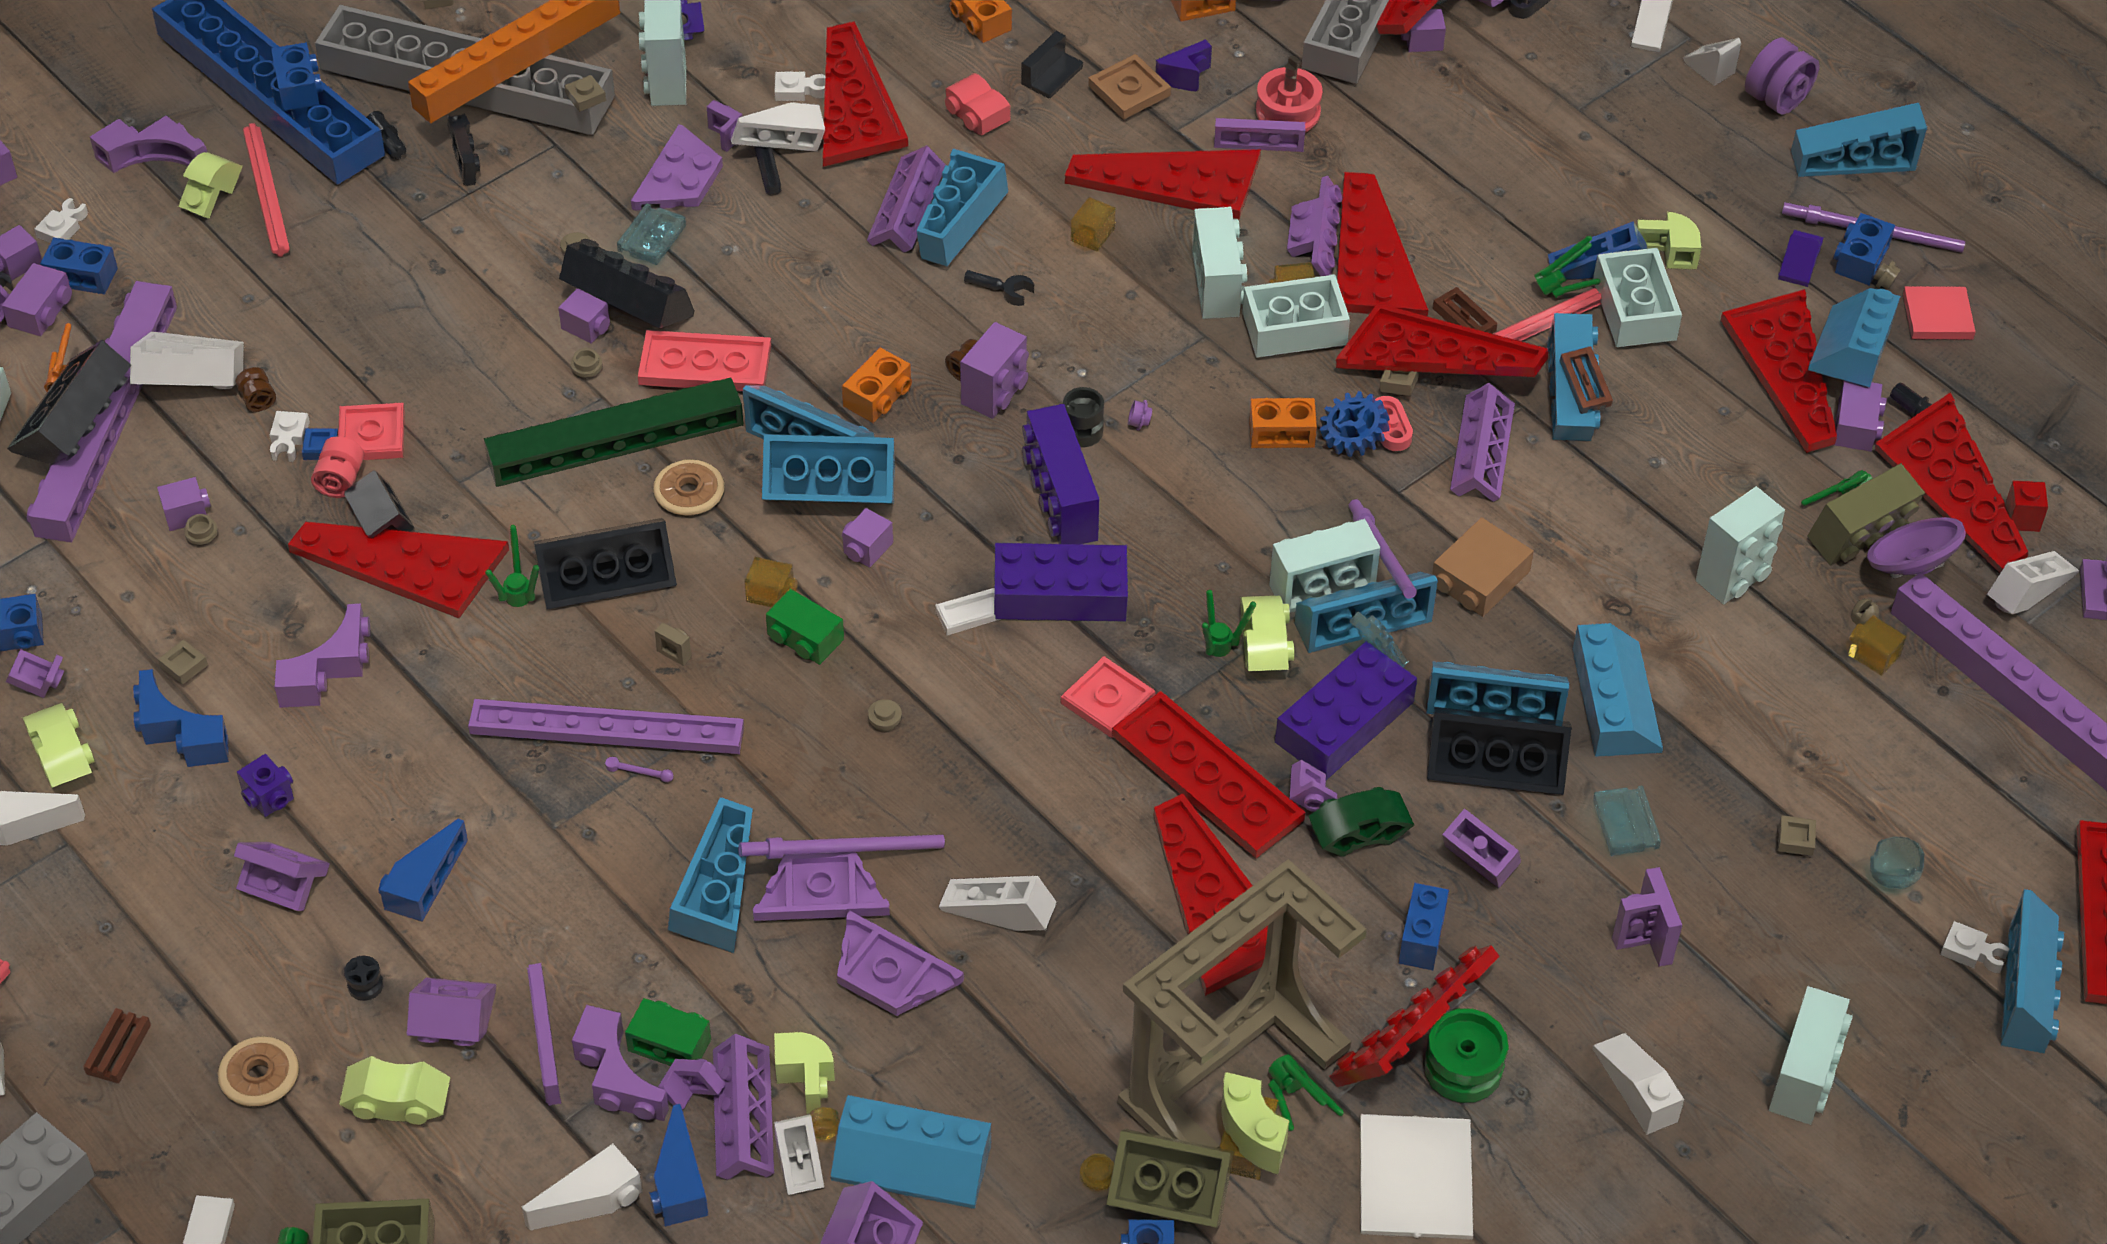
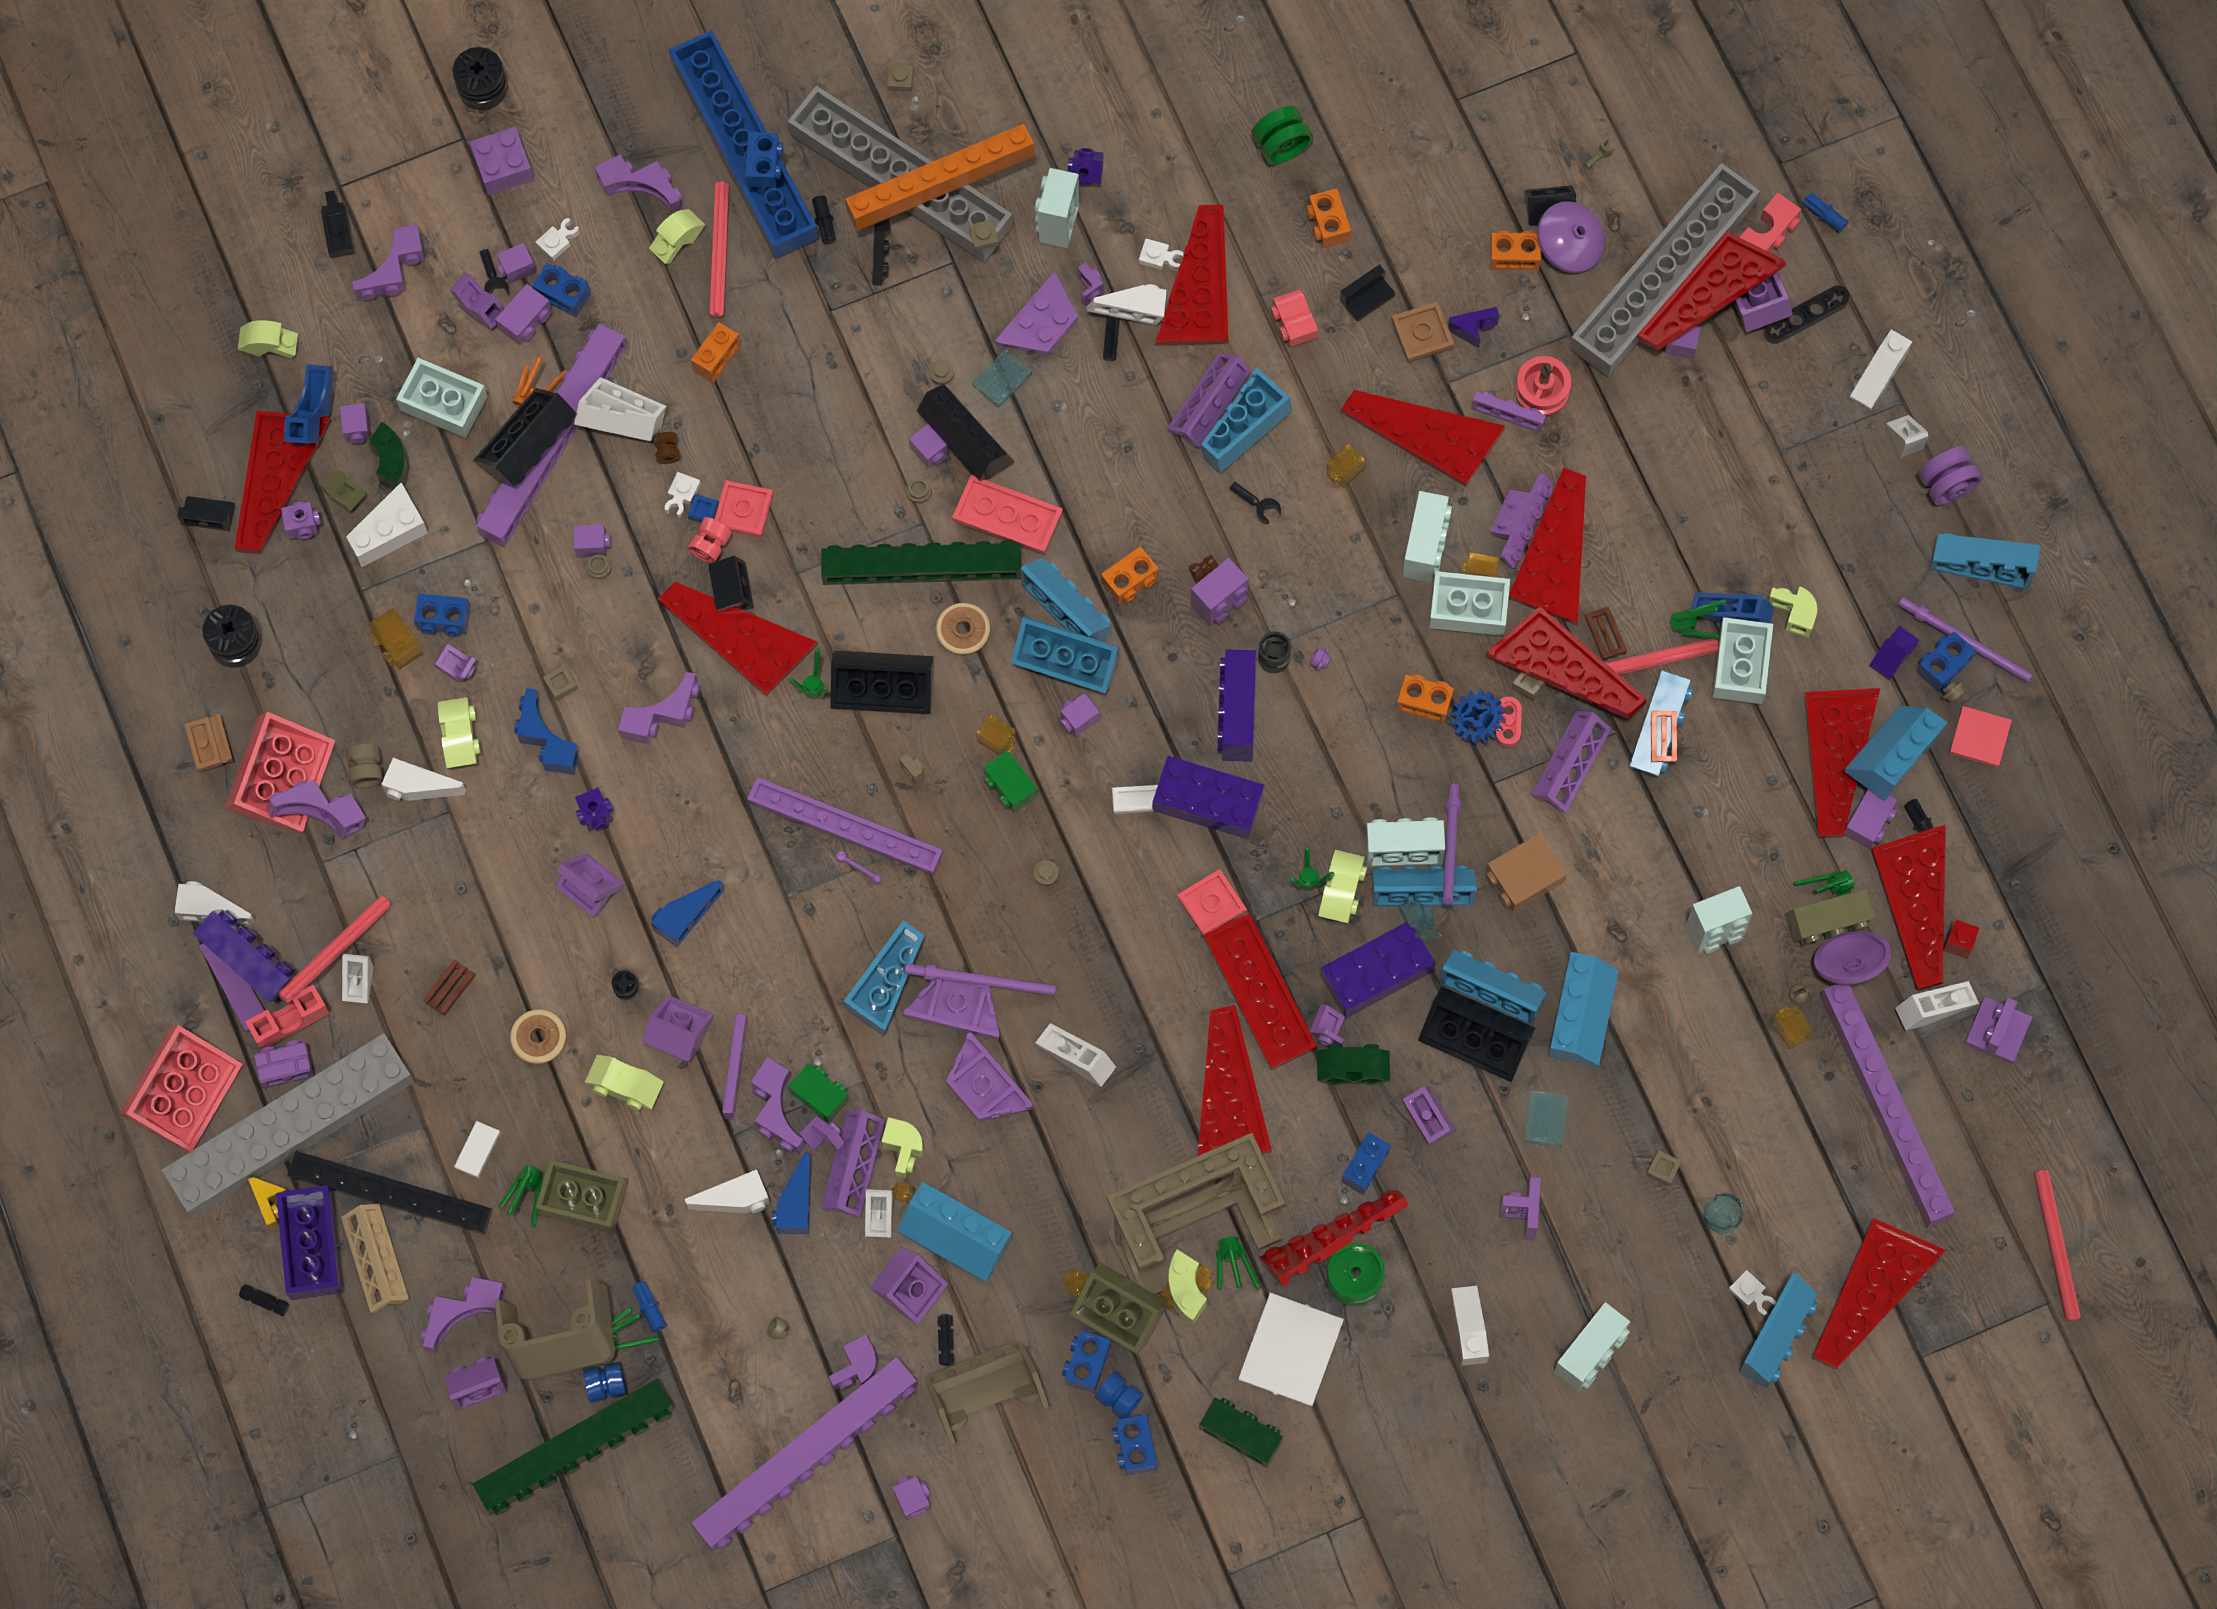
camera: 20 degrees right, 20 degrees up
(290, 282) = (715, 352): none -> orange brick

